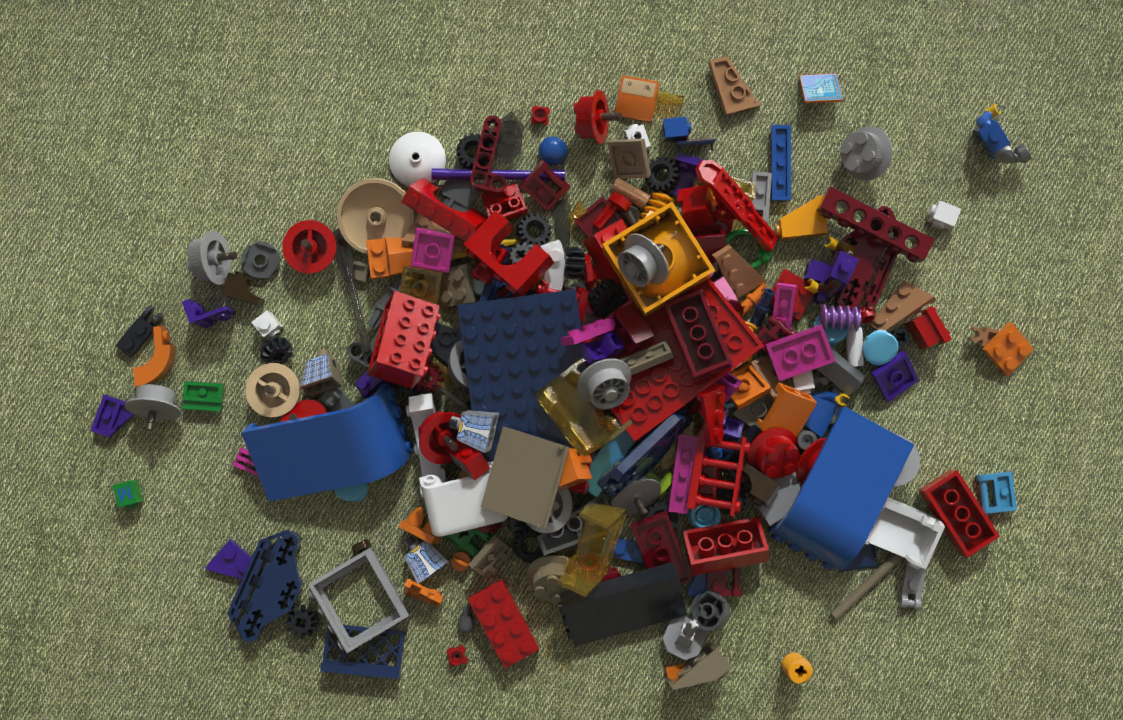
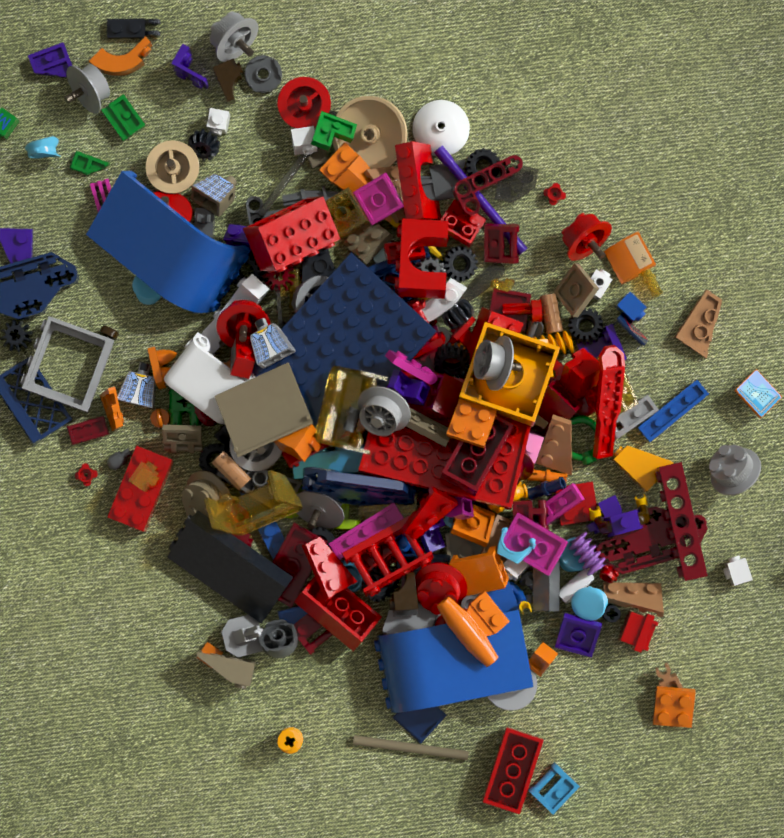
camera: 55 degrees right, 0 degrees up
(172, 479) = (43, 148): none -> medium azure piece
(215, 454) = (87, 164): none -> green tile
(338, 270) = (302, 140): none -> white brick
(344, 242) = (329, 127): none -> green plate
(423, 626) = (88, 430): none -> dark red plate
(498, 613) = (145, 476): none -> clear yellow brick
(551, 542) = (231, 470): none -> medium nougat axle
(553, 150) = (535, 227): blue hair -> none
(590, 414) = (351, 419): none -> dark grey pin
(673, 321) = (471, 423): none -> orange plate
(688, 528) = (327, 568): none -> wing
(798, 376) = (516, 557): none -> medium azure helmet
(831, 450) = (475, 624): none -> orange plate
(891, 418) = (542, 659): none -> orange brick
(906, 532) = (462, 735): white windscreen -> none
(912, 583) = (431, 779): light grey plate -> none

